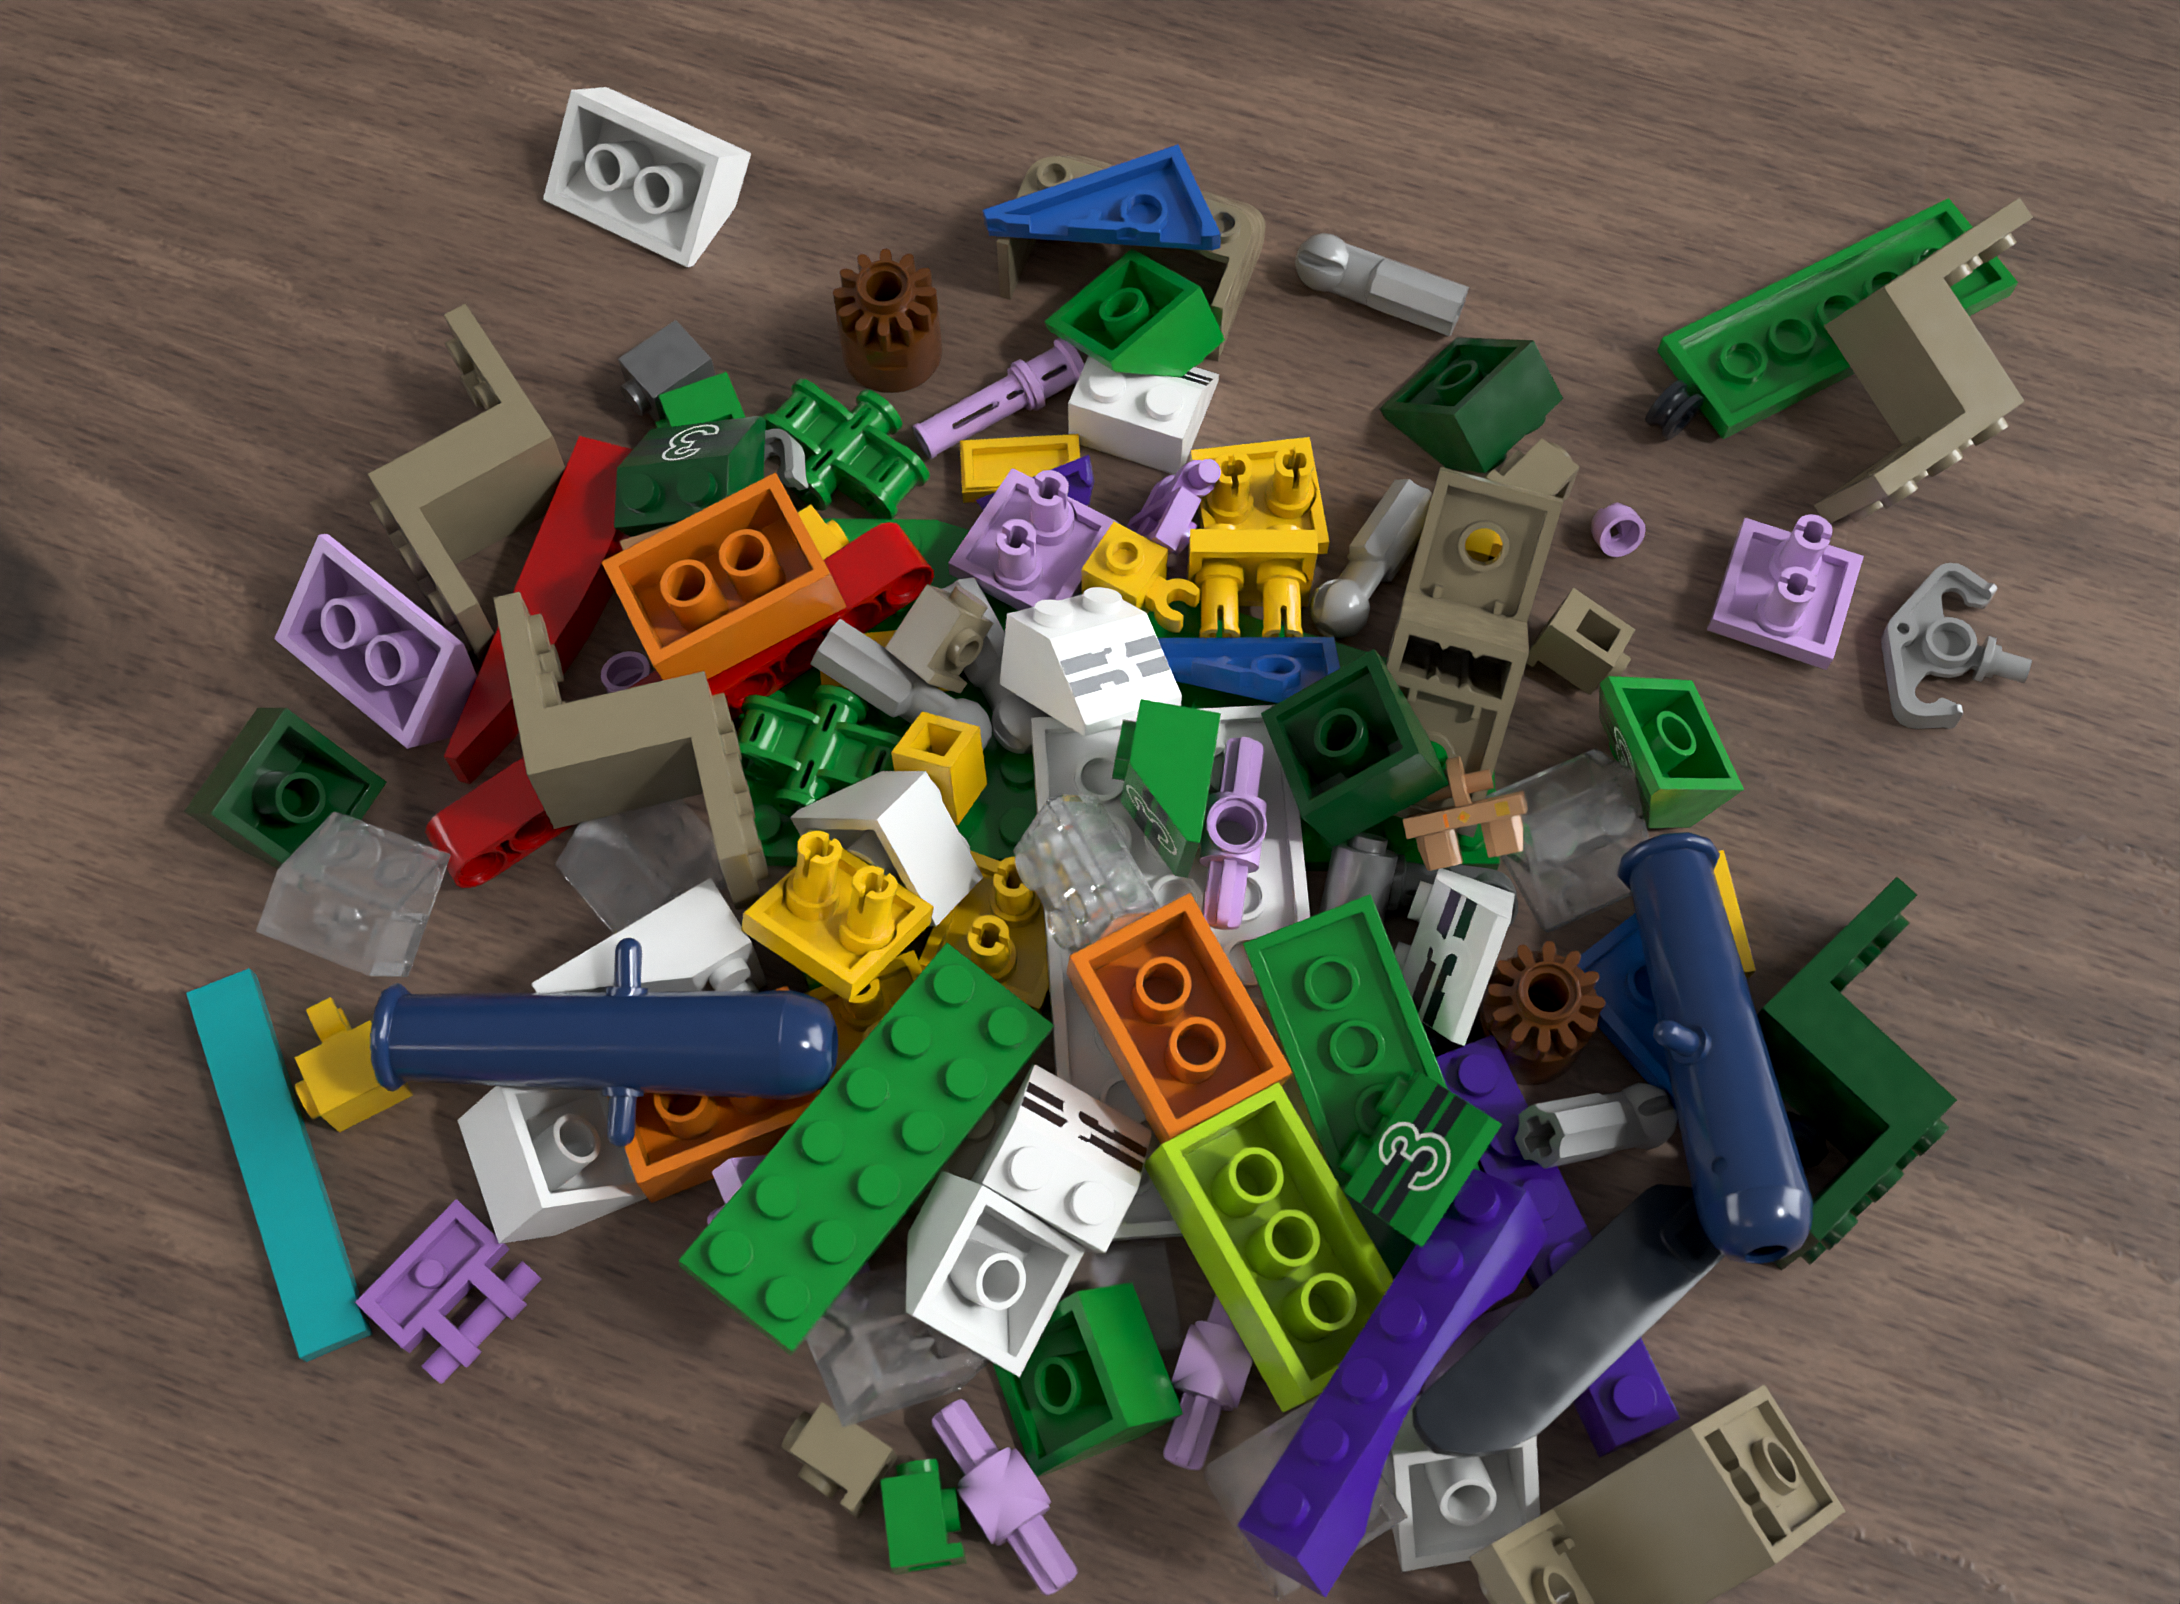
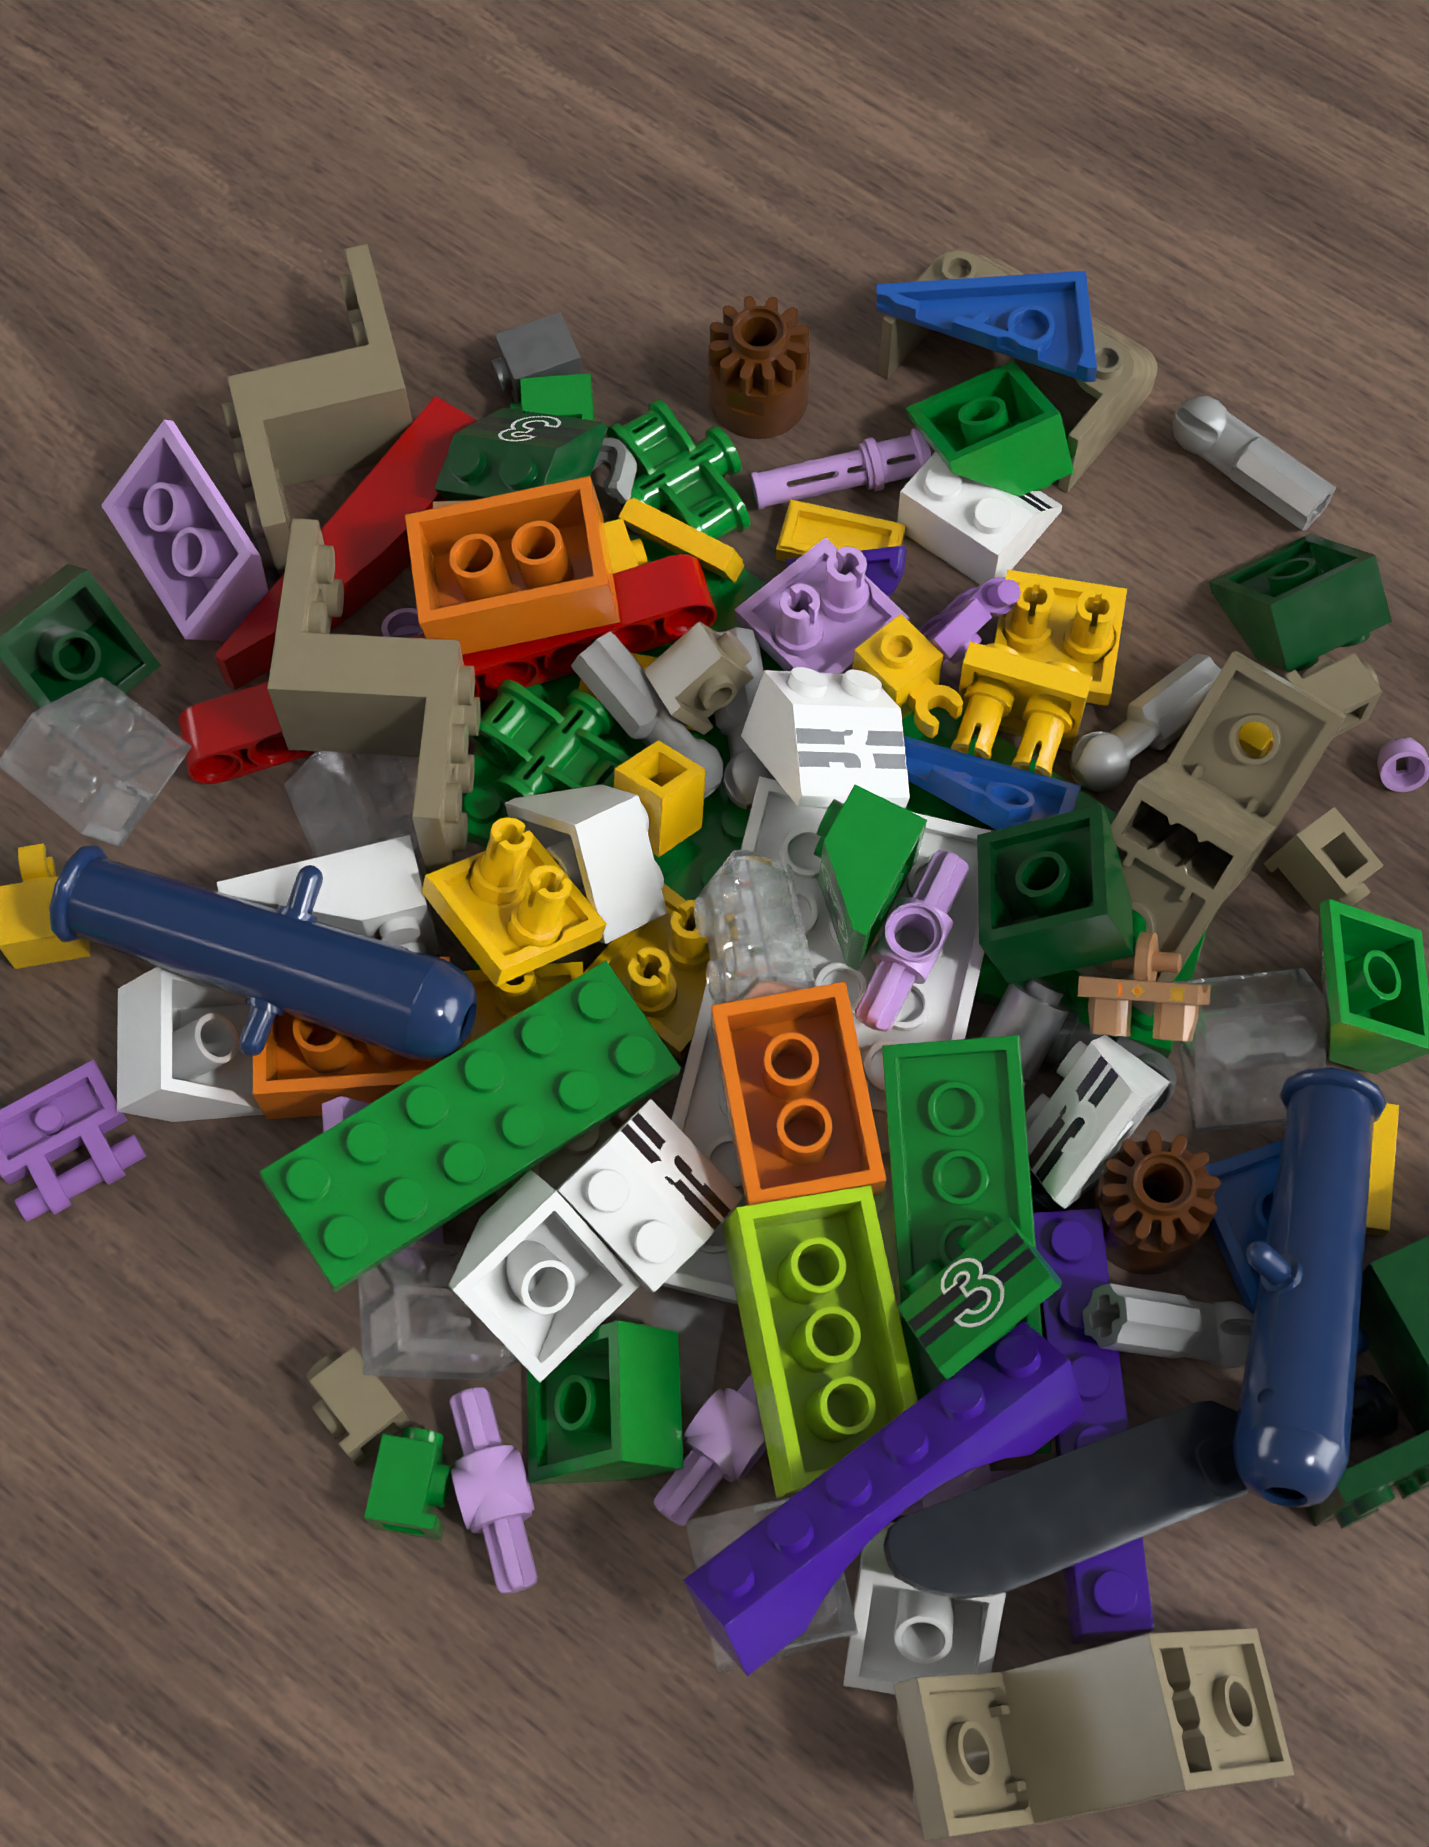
camera: 20 degrees right, 0 degrees up
(644, 174) = (580, 168): white slope -> none
(873, 508) = (682, 539): none -> yellow tile

